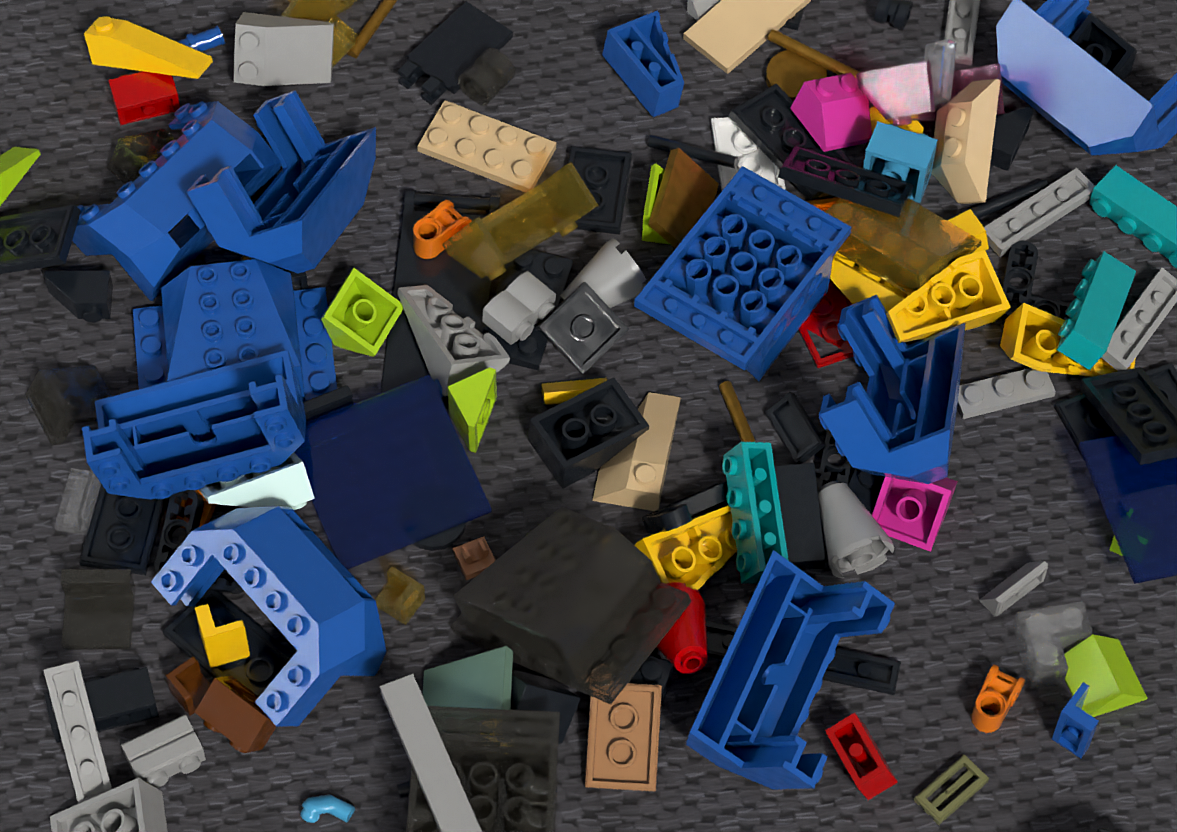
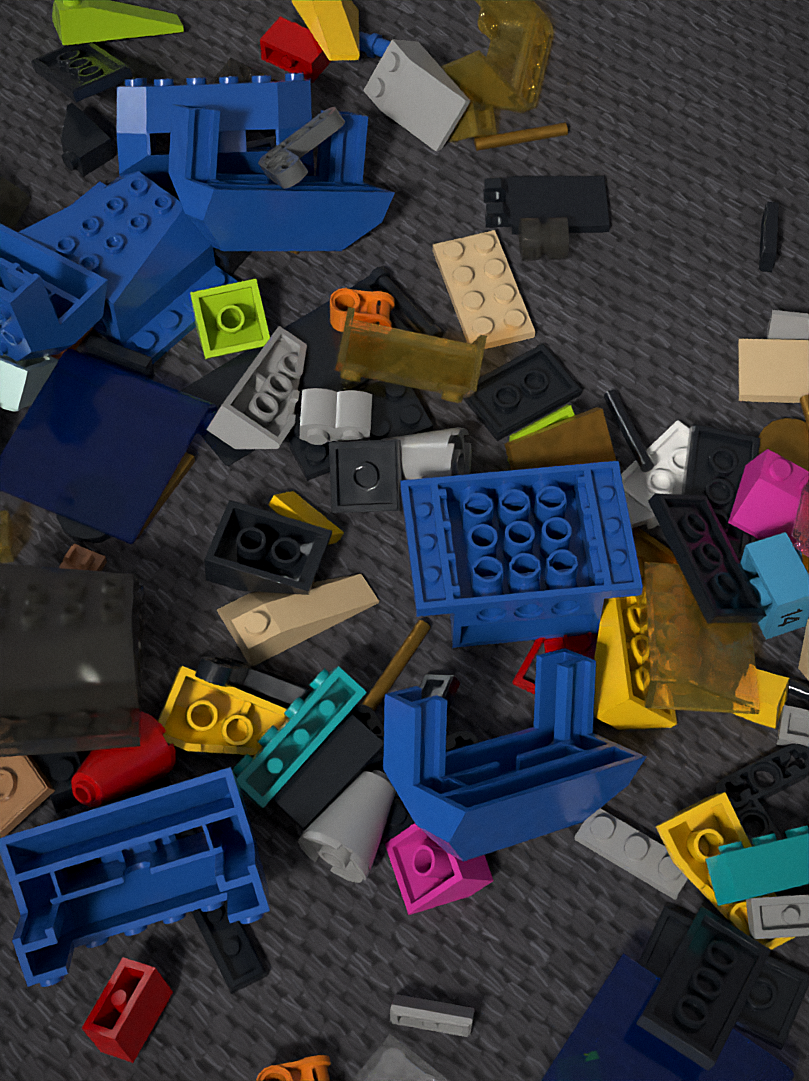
camera: 50 degrees right, 0 degrees up
(279, 167) = (283, 162): none -> dark grey beam
(472, 405) = (209, 455): lime slope -> none
(645, 63) = (675, 331): blue wedge -> none
(957, 295) = (674, 732): yellow wedge -> none

